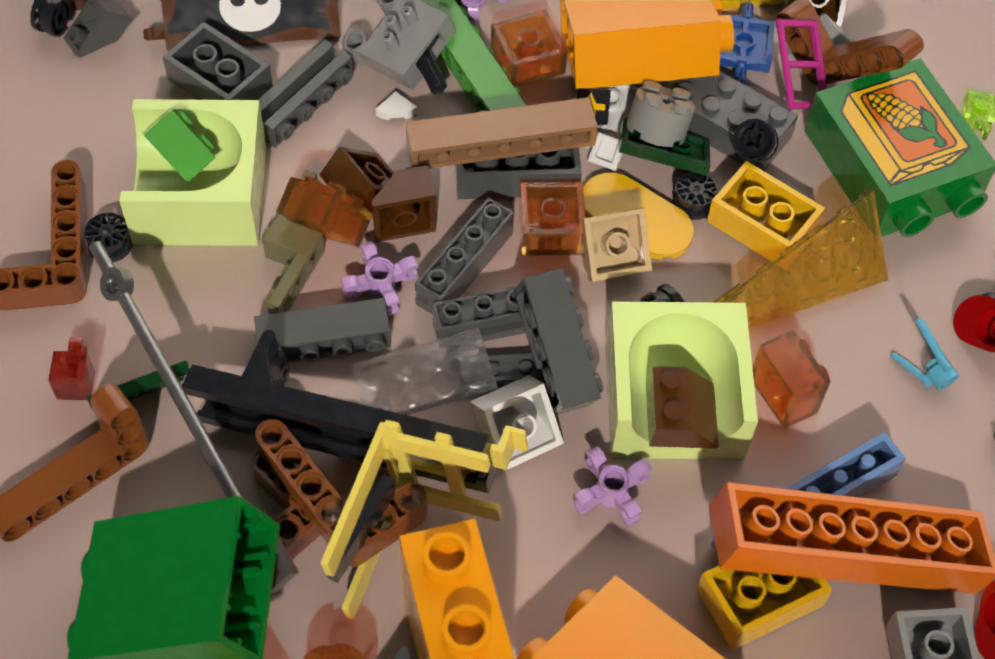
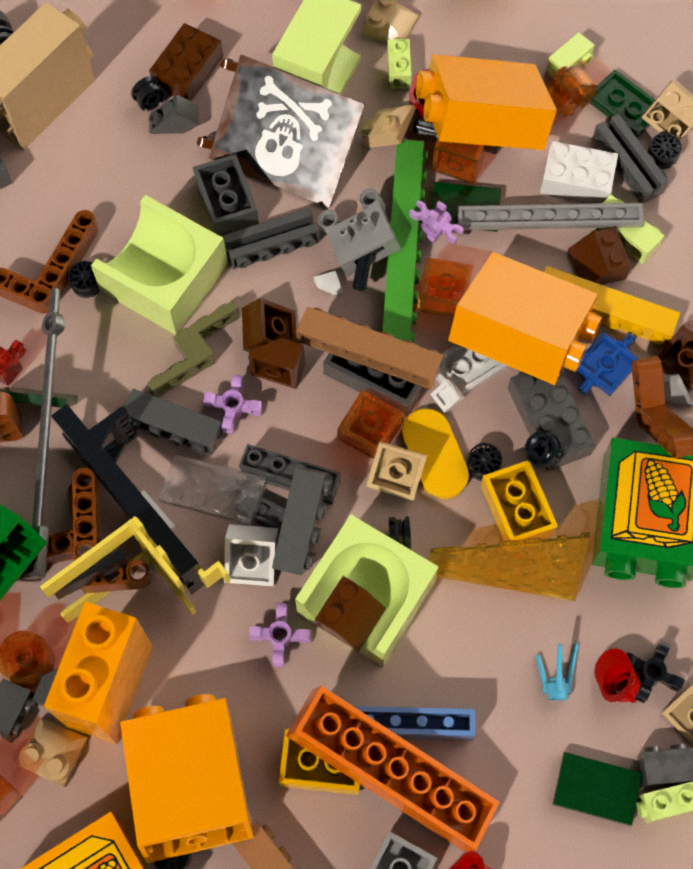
camera: 35 degrees right, 10 degrees up
(179, 144) = (156, 242): bright green brick -> none
(325, 210) = (220, 339): clear orange brick -> none
(465, 255) = (296, 420): dark grey brick -> none
(600, 102) = (456, 357): black sticker -> none
(661, 114) = (494, 391): light grey brick -> none
(689, 156) = (486, 414): dark green tile -> none
(786, 64) = (639, 414): dark pink window -> none
(790, 378) = (443, 632): clear orange brick -> none

